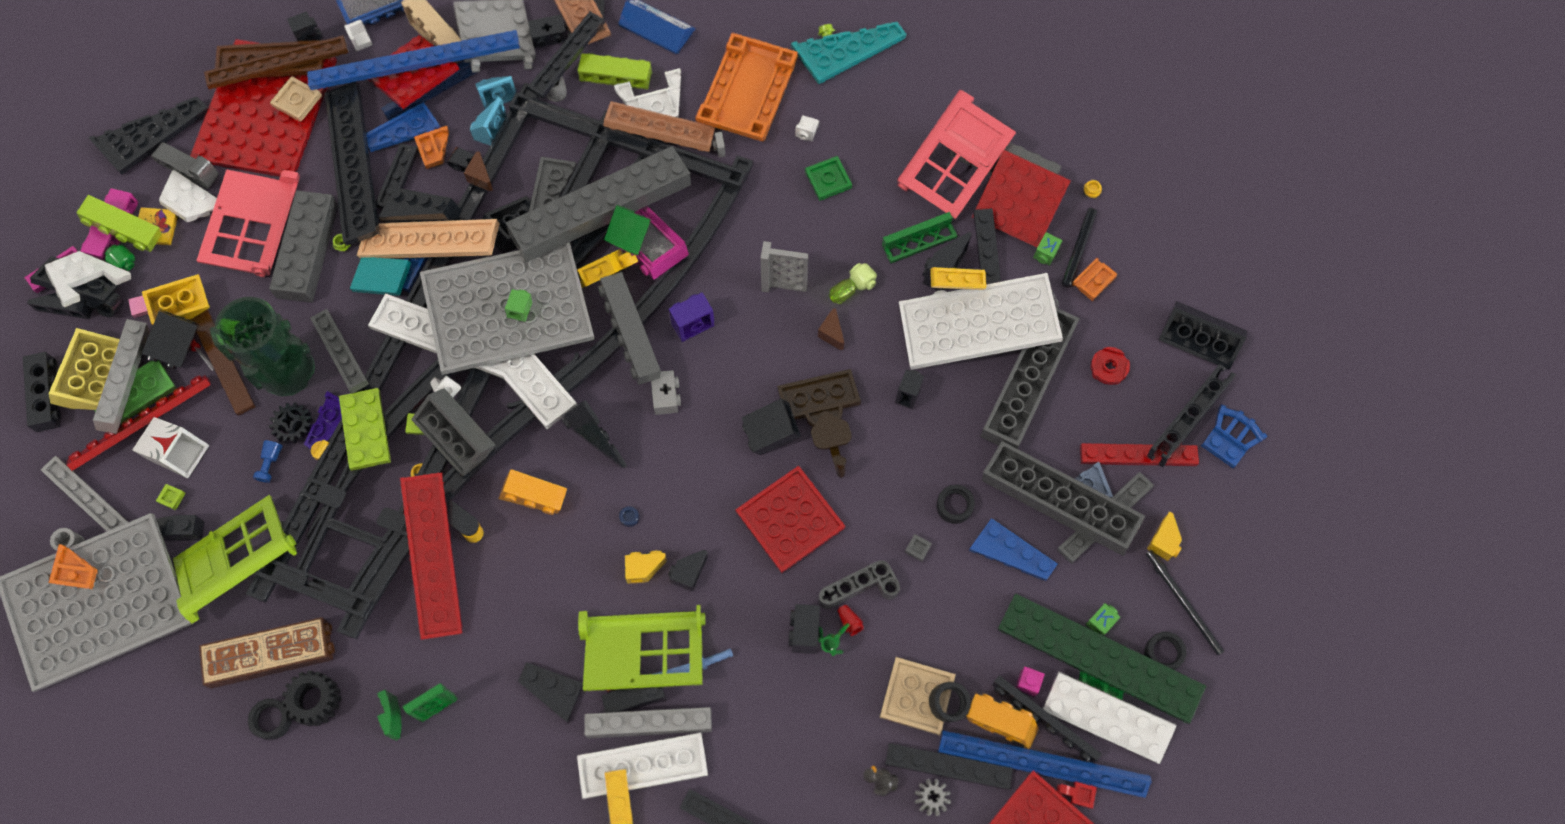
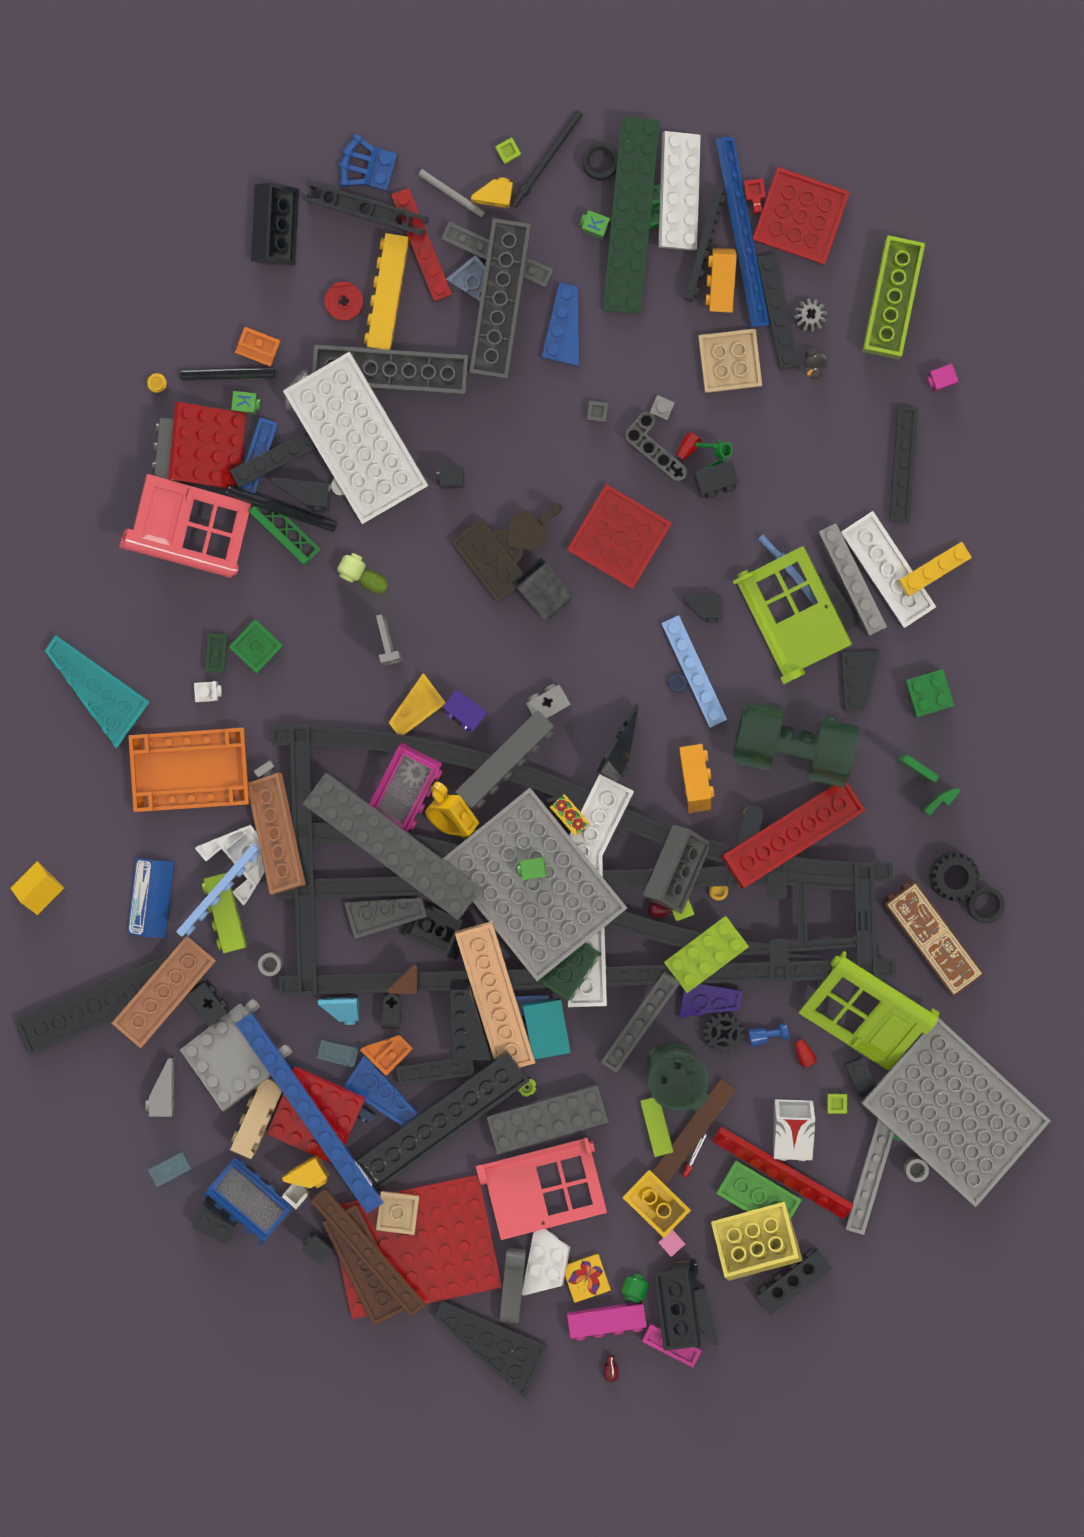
camera: 115 degrees left, 20 degrees up
(67, 214) = (611, 1369): none -> dark red cylinder
(72, 570) = (940, 1140): orange wing -> none
(77, 270) = (668, 1314): white wing -> none
(118, 223) = (605, 1302): lime brick -> none
(121, 376) = (751, 1207): light grey brick -> none
(170, 339) = (696, 1185): black brick -> none
(230, 486) = (804, 1054): none -> red cone
(318, 448) = (739, 988): yellow plate -> none
(366, 42) = (308, 1174): none -> yellow slope
(411, 305) = (572, 972): none -> dark green wing
(447, 383) = (637, 902): white bracket -> none
(454, 109) = (337, 1053): none -> clear light blue plate
(494, 619) = (829, 751): none -> clear green cylinder
(496, 87) = (301, 1022): medium azure slope -> none
(500, 752) = (929, 693): none -> green brick
(552, 362) = (570, 815): none -> tile
(566, 55) = (236, 963): black plate -> none
(627, 229) = (411, 805): green slope -> none
(632, 536) = (694, 671): none -> light blue plate
(636, 69) = (224, 885): none -> light blue plate
(642, 567) = (720, 648): yellow slope -> none
(715, 284) = (417, 706): none -> yellow wing
(825, 30) = (85, 719): lime plate -> none
(831, 331) = (418, 575): reddish brown slope -> none
(836, 146) = (216, 653): none -> dark green plate
(897, 611) = (662, 407): none -> light grey plate
(940, 241) = (281, 508): none -> black axle
(957, 489) = (542, 408): black tyre -> none
(958, 278) = (325, 472): yellow tile -> none
(964, 697) = (726, 316): black tyre -> none
(1006, 249) = (260, 444): none -> blue plate
(1029, 681) = (677, 269): dark pink brick -> none
(1104, 405) = (388, 292): none -> yellow brick
(1179, 501) = (451, 193): none -> light grey bar
(1204, 568) = (508, 151): none -> lime plate

